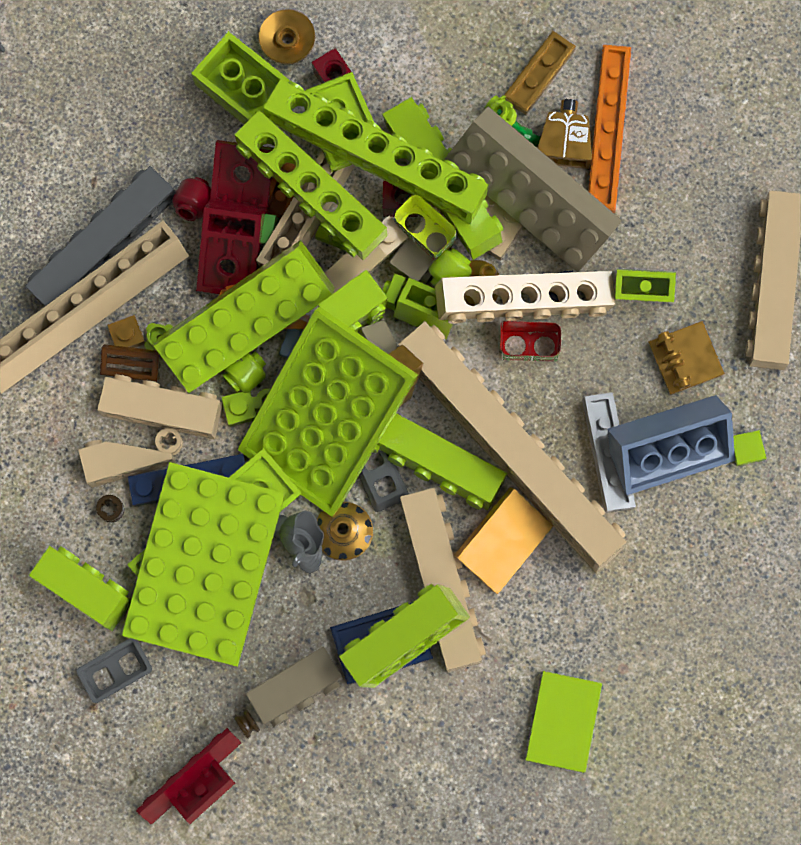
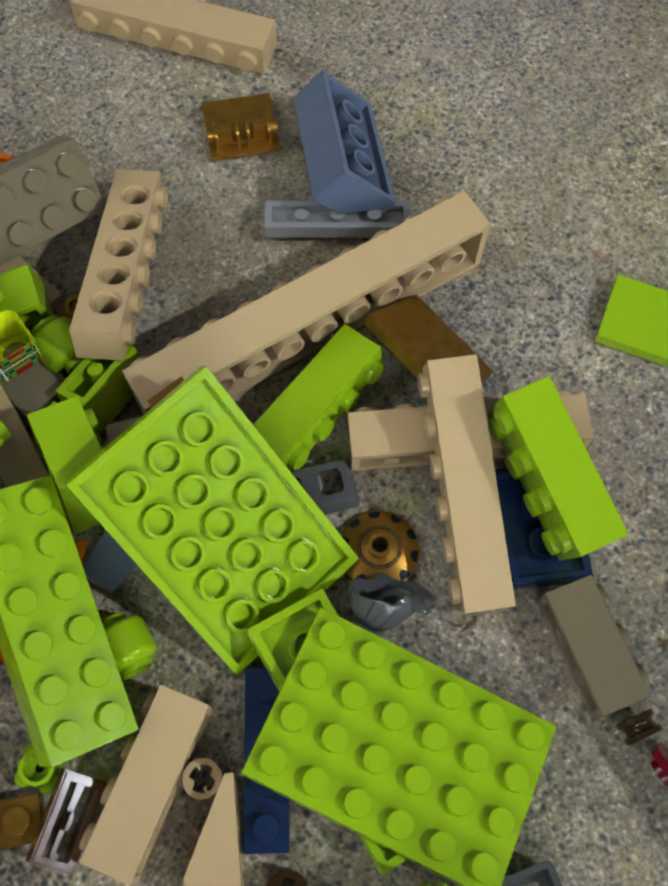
camera: 90 degrees left, 10 degrees down
(242, 406) = (177, 658): lime plate -> none
(391, 579) = (467, 485): none -> tan brick
(522, 329) = (187, 248): red piece -> none
(645, 285) = (144, 134): lime brick -> none
(748, 448) = (362, 83): lime tile -> none

